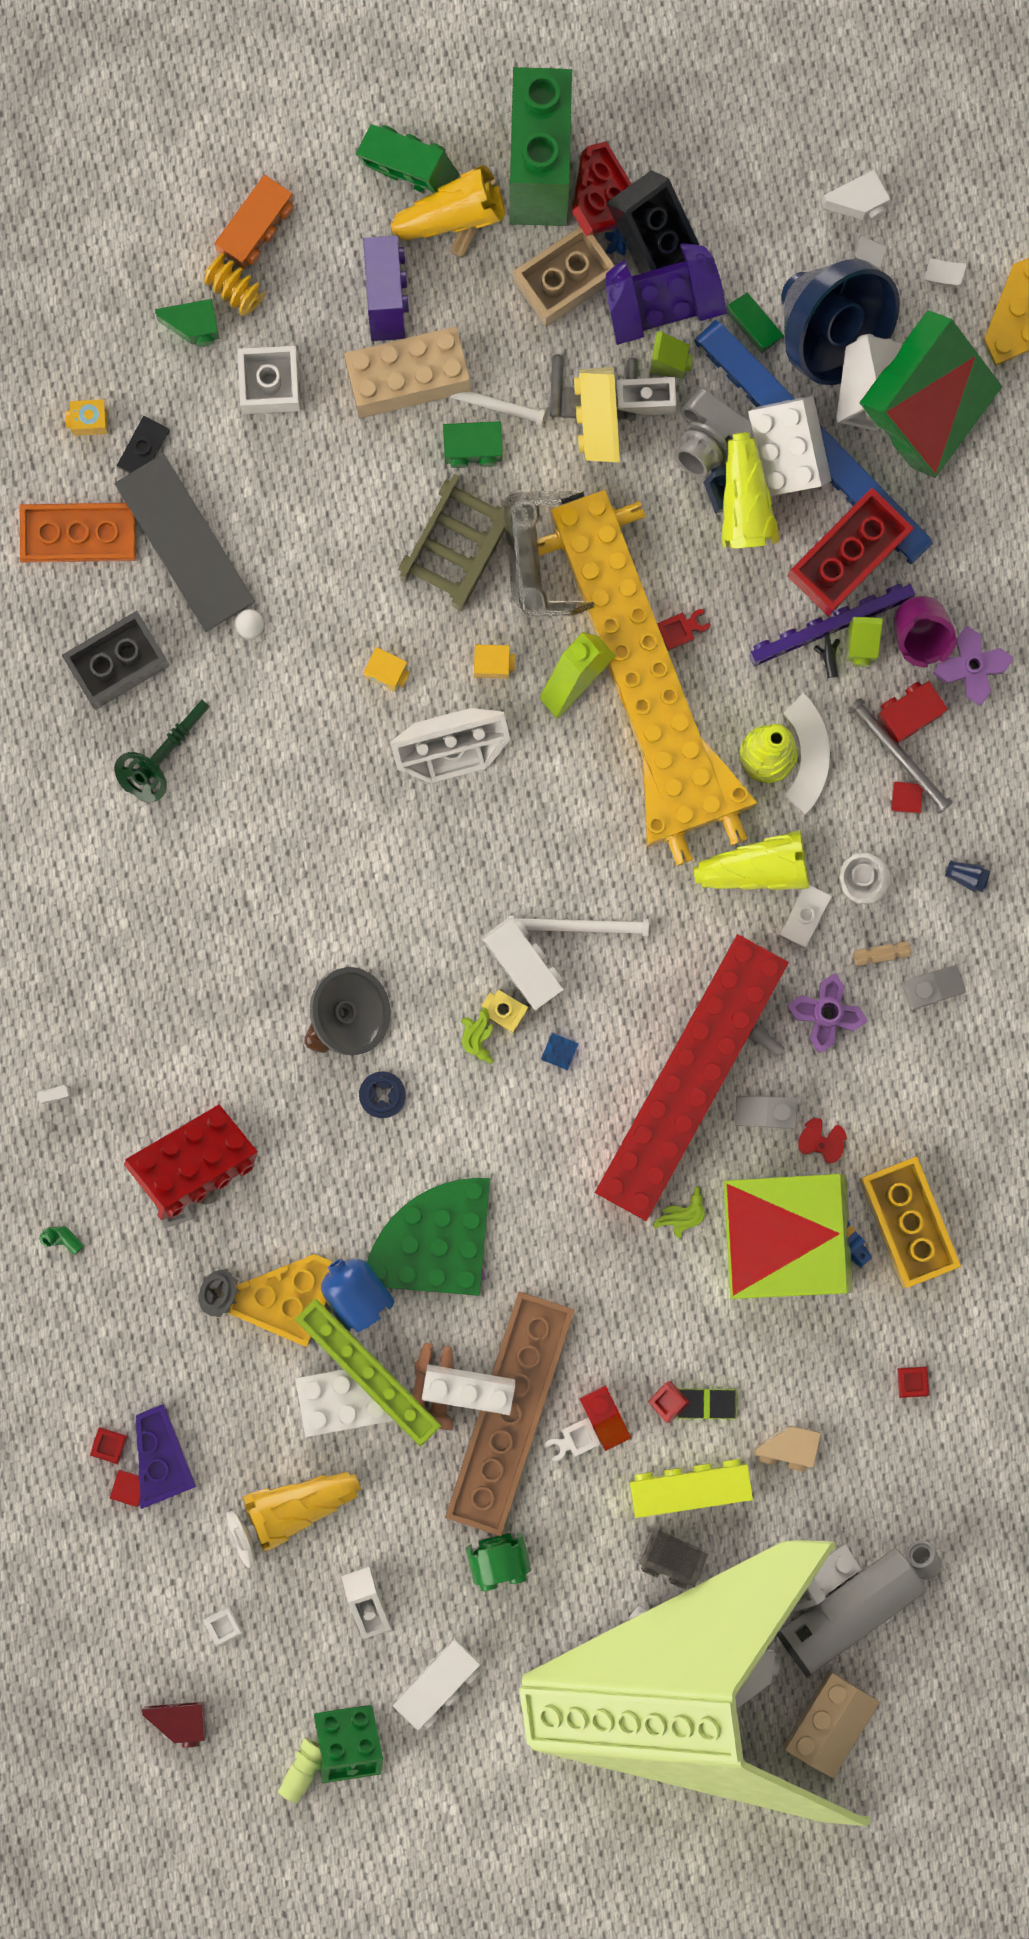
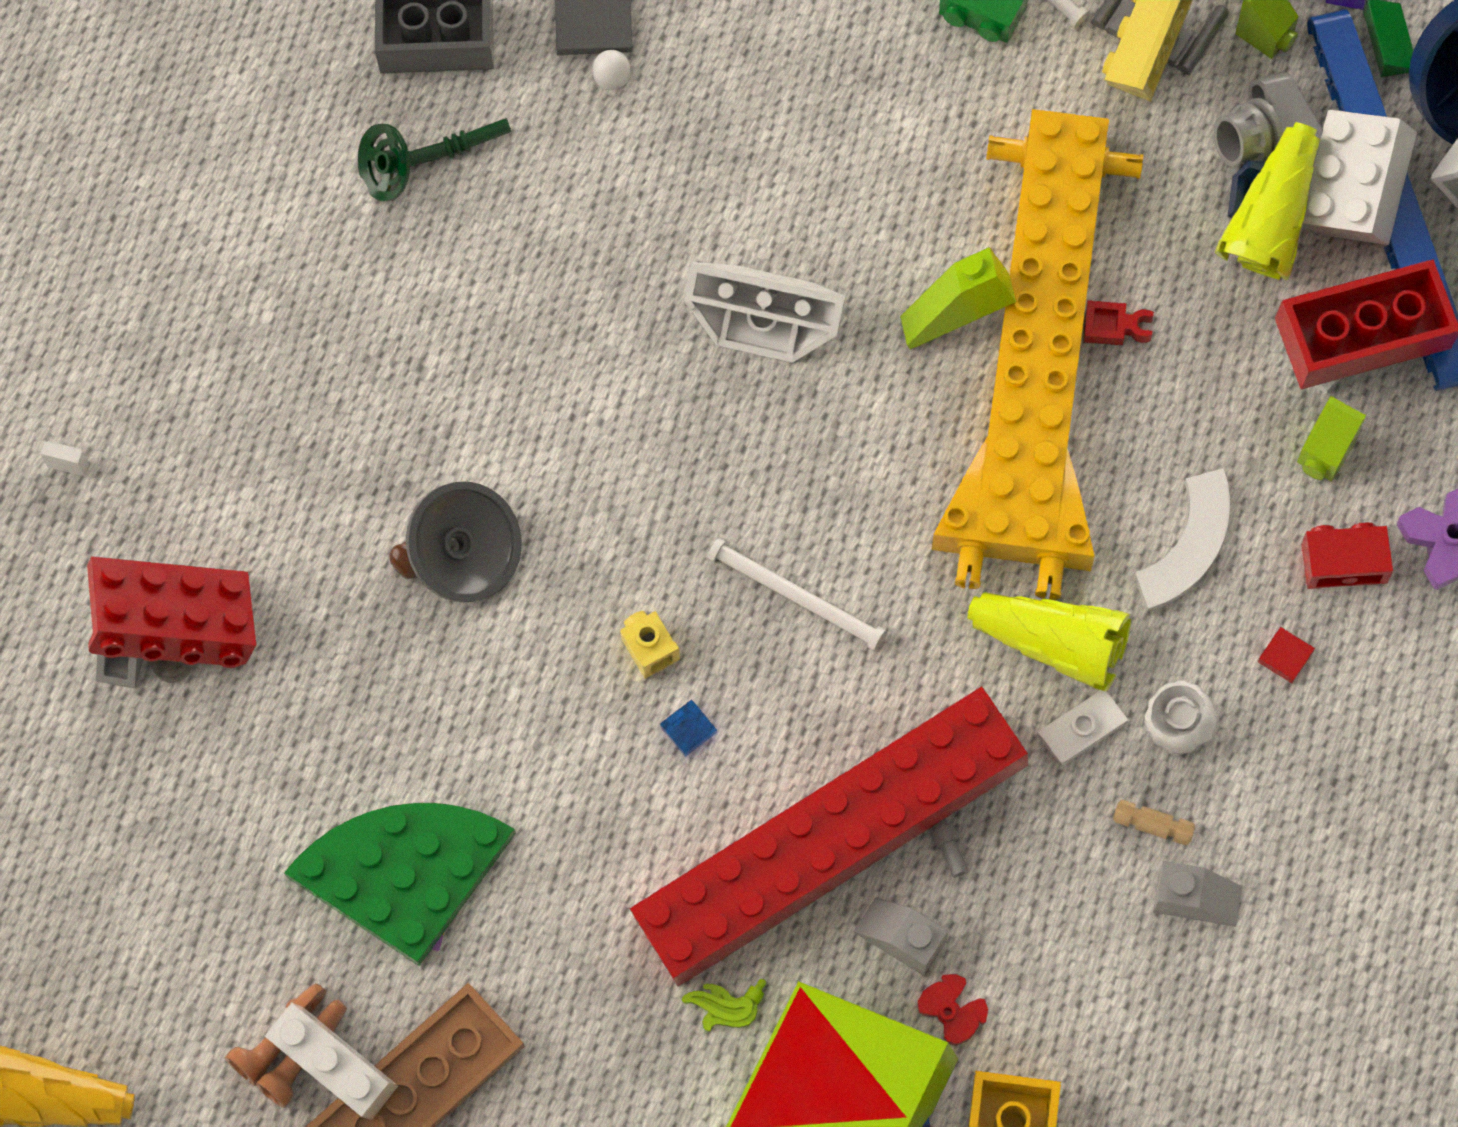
camera: 35 degrees right, 15 degrees down
(210, 1301) = (94, 792): dark grey gear -> none
(281, 1295) = (186, 839): yellow plate -> none
(336, 1403) = (178, 995): white brick -> none
(355, 1293) = (265, 867): blue cylinder -> none
(368, 1372) = (222, 971): lime tile -> none
(383, 1080) = (430, 654): dark blue gear -> none
(386, 670) = (738, 192): yellow brick -> none
(472, 566) = (905, 133): olive fence -> none
(475, 1034) = (598, 650): lime piece -> none
(493, 661) = (868, 245): yellow brick -> none
(520, 518) = (977, 134): clear smoke windscreen -> none
(523, 962) = (703, 596): white brick -> none
(647, 396) = (1217, 47): white slope -> none
(768, 753) = (1145, 507): neon yellow cone -> none
(817, 628) = (1286, 406): dark purple plate -> none
(829, 655) = (1279, 443): black bar -> none
(830, 997) = (1061, 869): medium lavender plant -> none
(900, 755) = (1327, 679): flat silver bar -> none
(924, 631) = (1410, 464): magenta cylinder -> none
(968, 875) = (1316, 786): dark blue cone -> none

